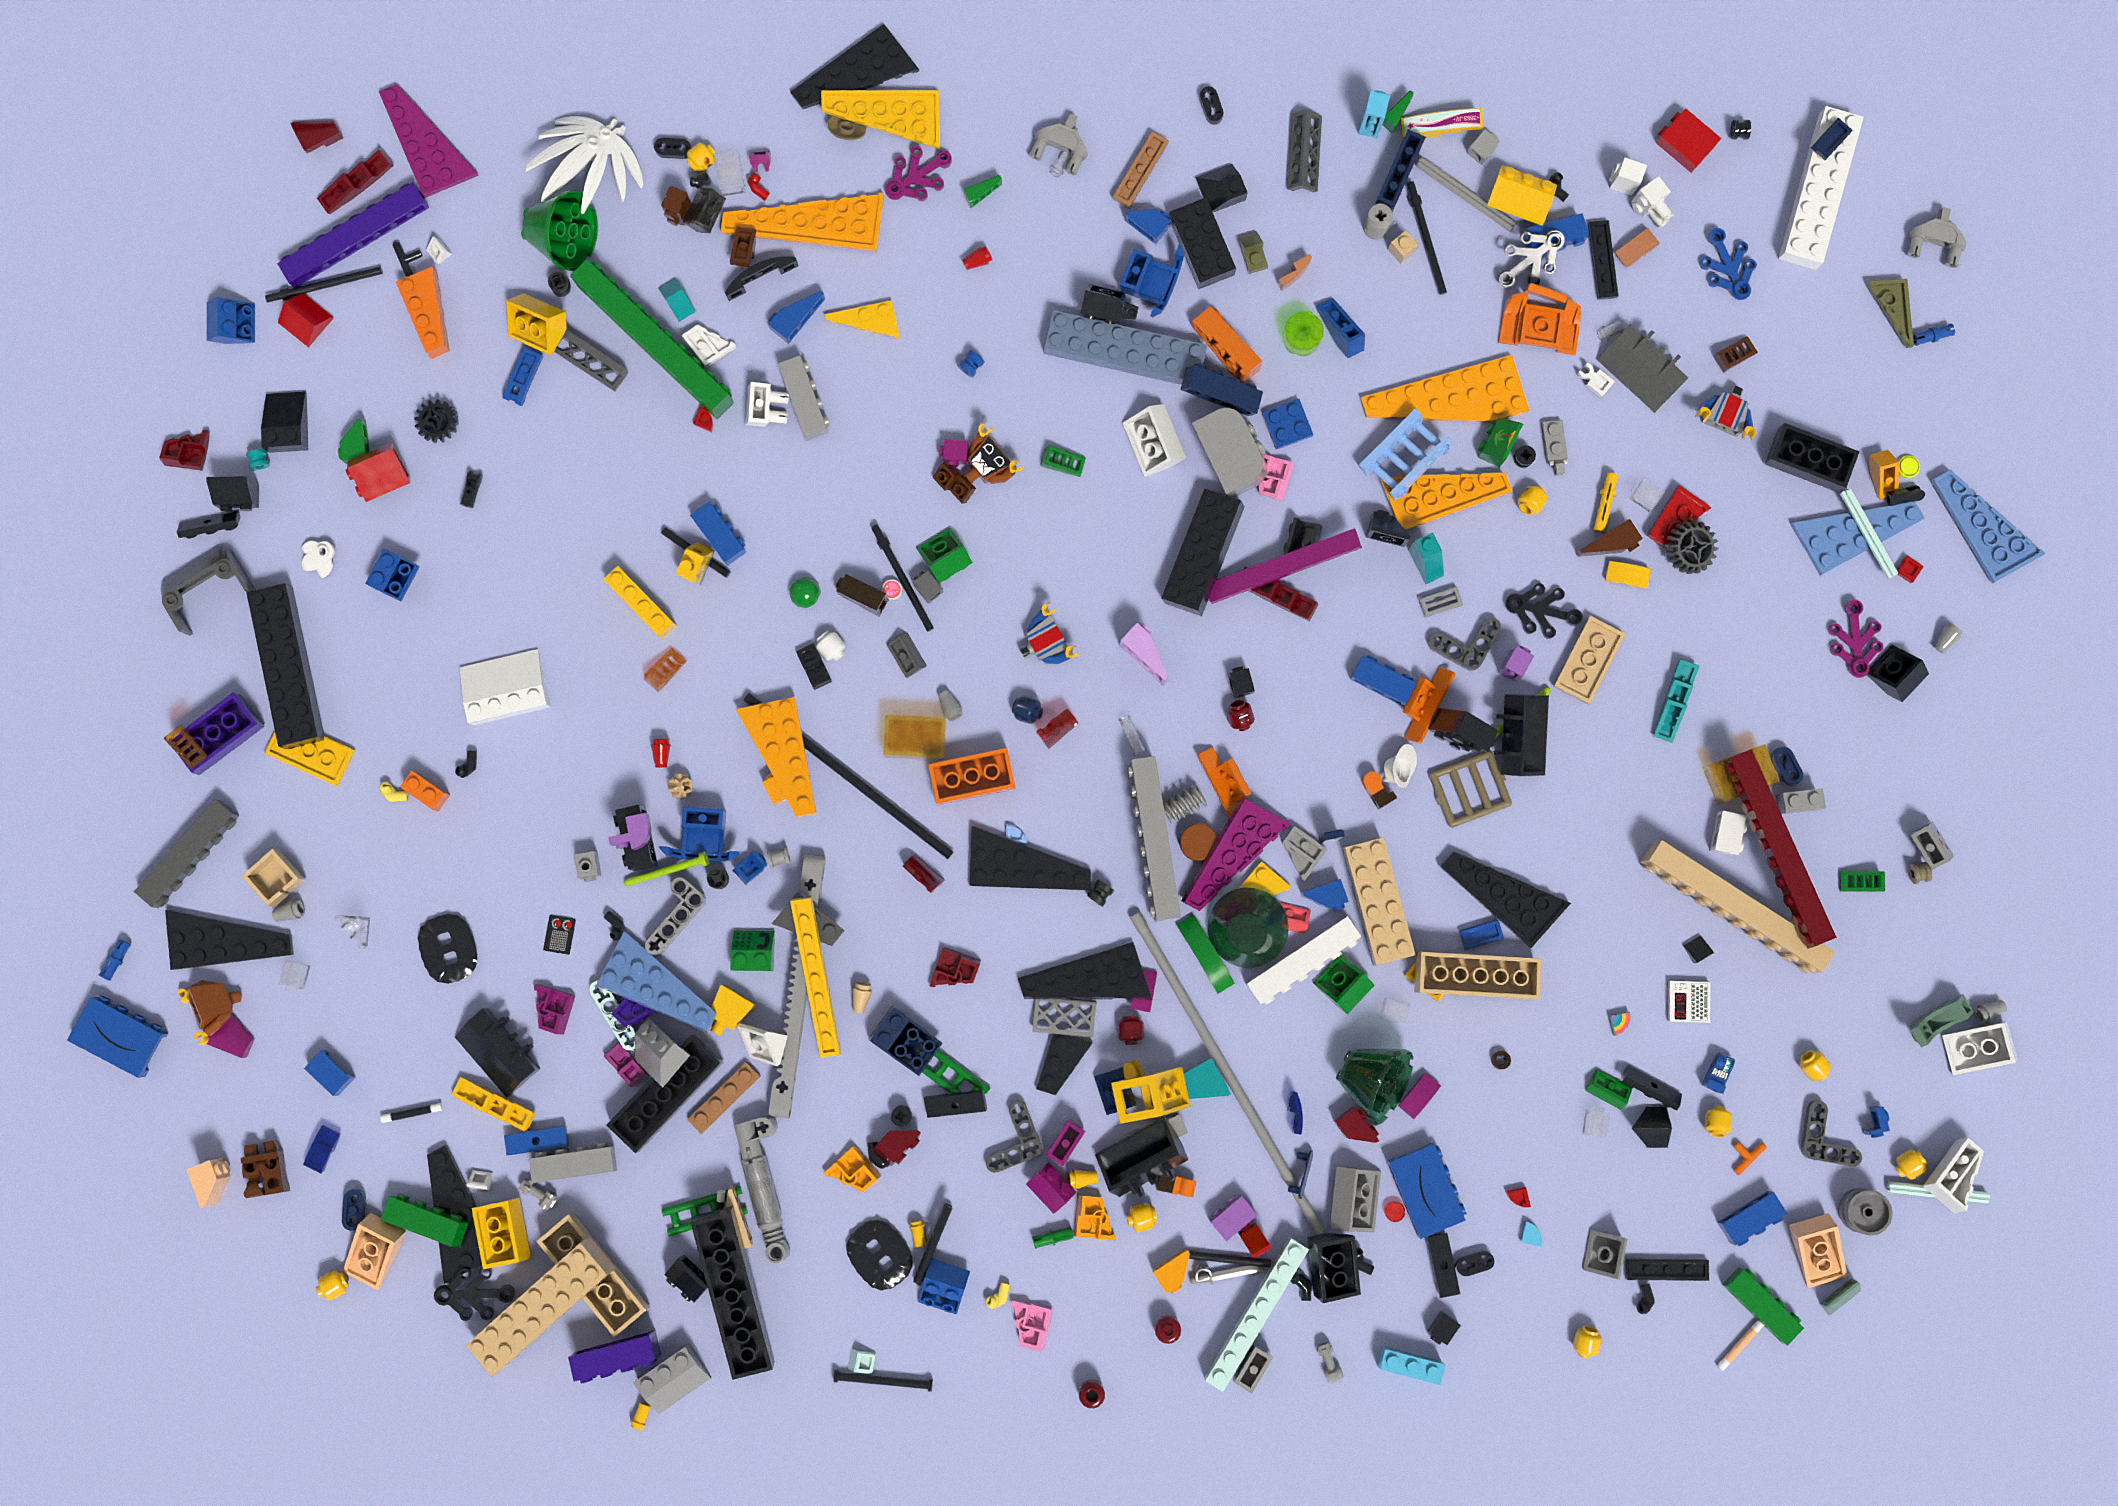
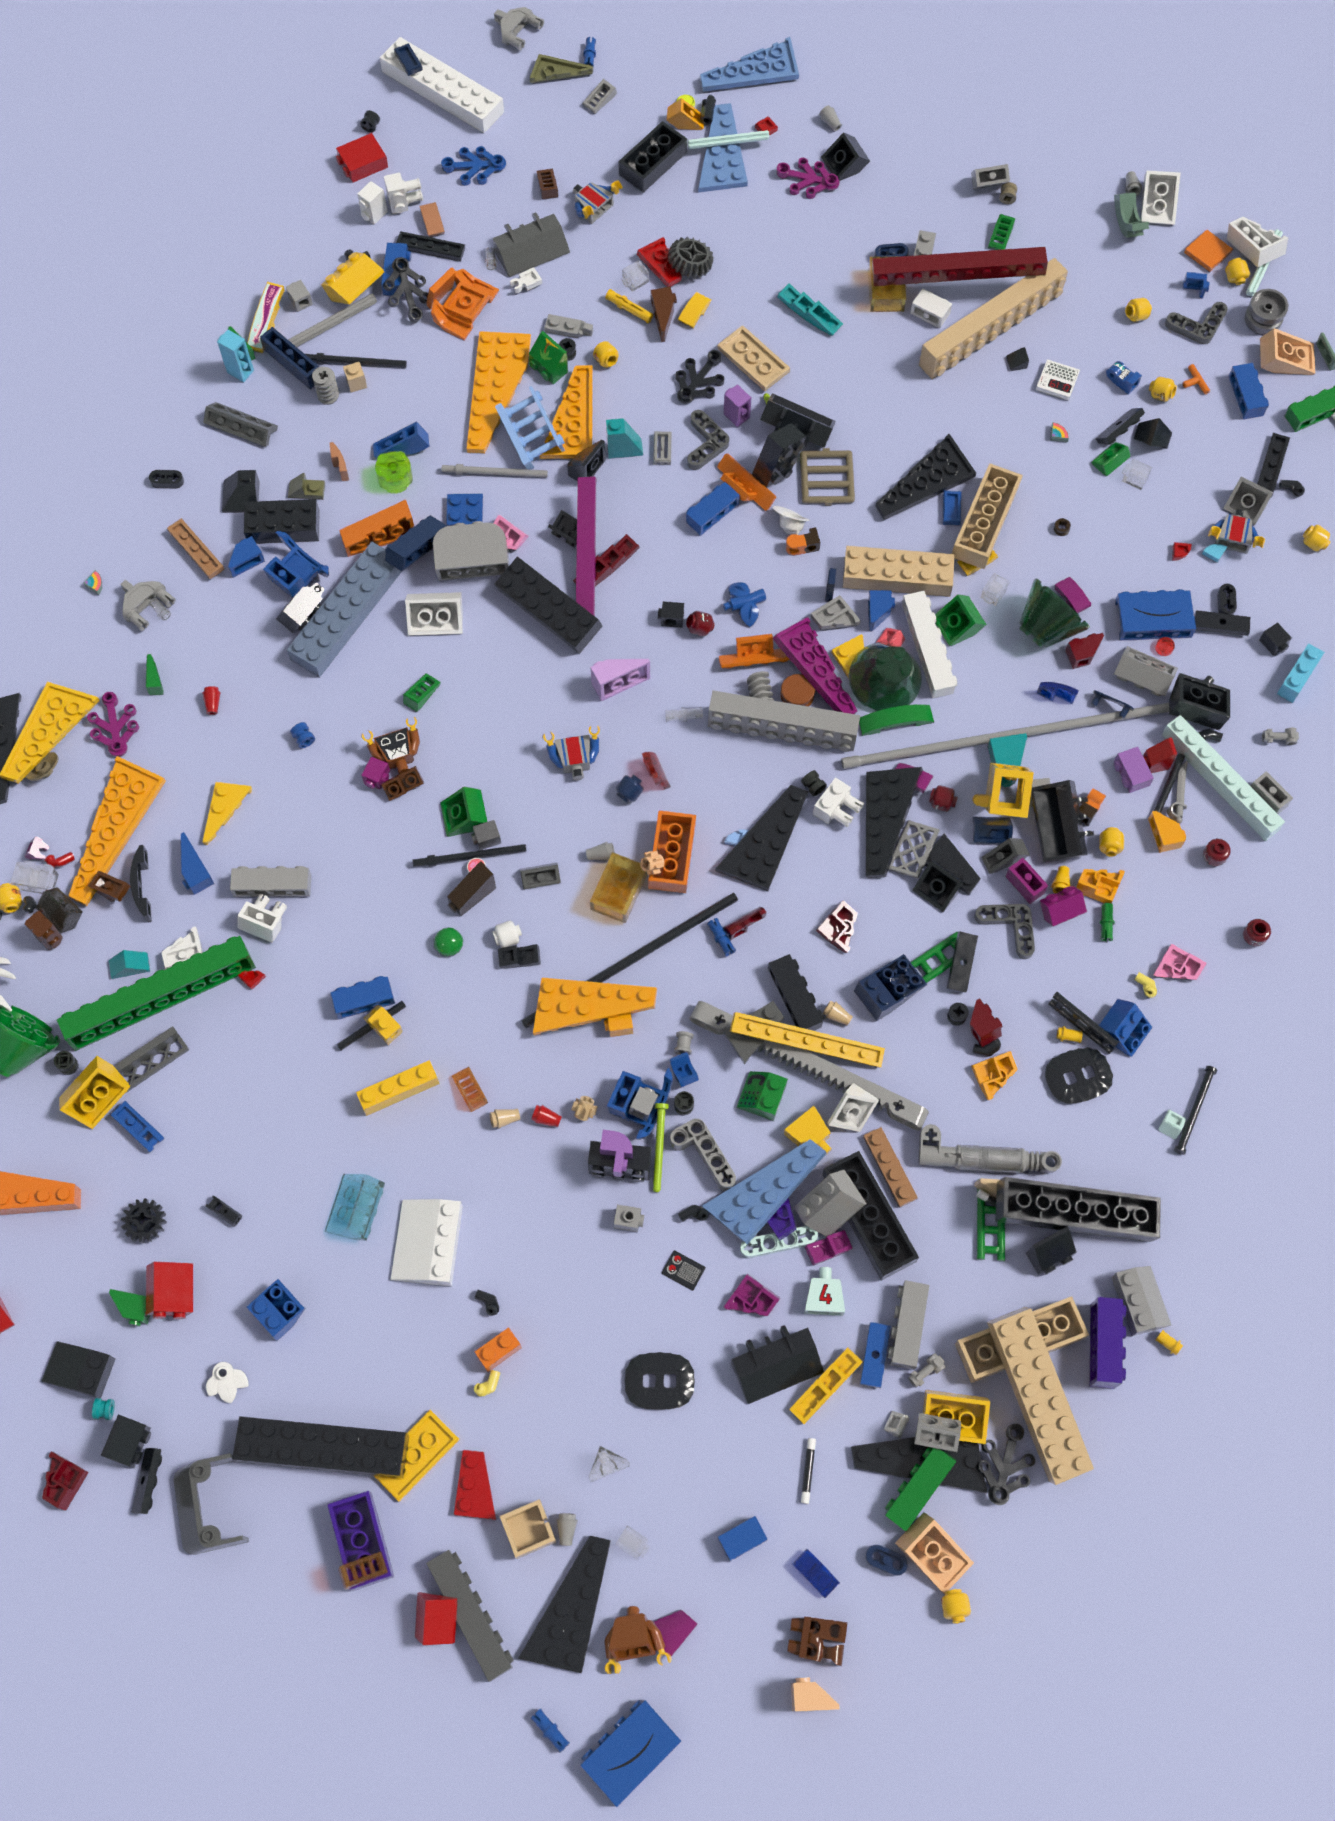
camera: 70 degrees left, 15 degrees down
(170, 825) = (435, 1619): none -> red slope
(295, 816) = (474, 1490): none -> red wing
(472, 1221) = (938, 1432): none -> light grey brick
(513, 608) = (355, 1206): none -> clear light blue slope
(576, 1075) = (825, 1295): none -> light aqua torso
(646, 712) = (503, 1117): none -> tan cone
(699, 840) = (643, 1103): none -> light grey brick
(865, 949) = (795, 994): none -> black brick
(901, 856) = (721, 937): none -> blue pin
(943, 762) = (652, 862): none -> light nougat gear
(1028, 1054) = (938, 886): none -> black slope
(1066, 86) = (94, 582): none -> tile
(1085, 917) = (832, 800): none -> white brick
(1088, 1113) = (1005, 855): none -> dark grey slope
(1284, 752) = (745, 602): none -> blue plant
(1334, 400) = (459, 469): none -> light grey bar
(1560, 1251) = (1236, 533): none -> torso
(1873, 374) = (603, 85): none -> light grey slope
(1931, 1123) = (1208, 250): none -> orange tile

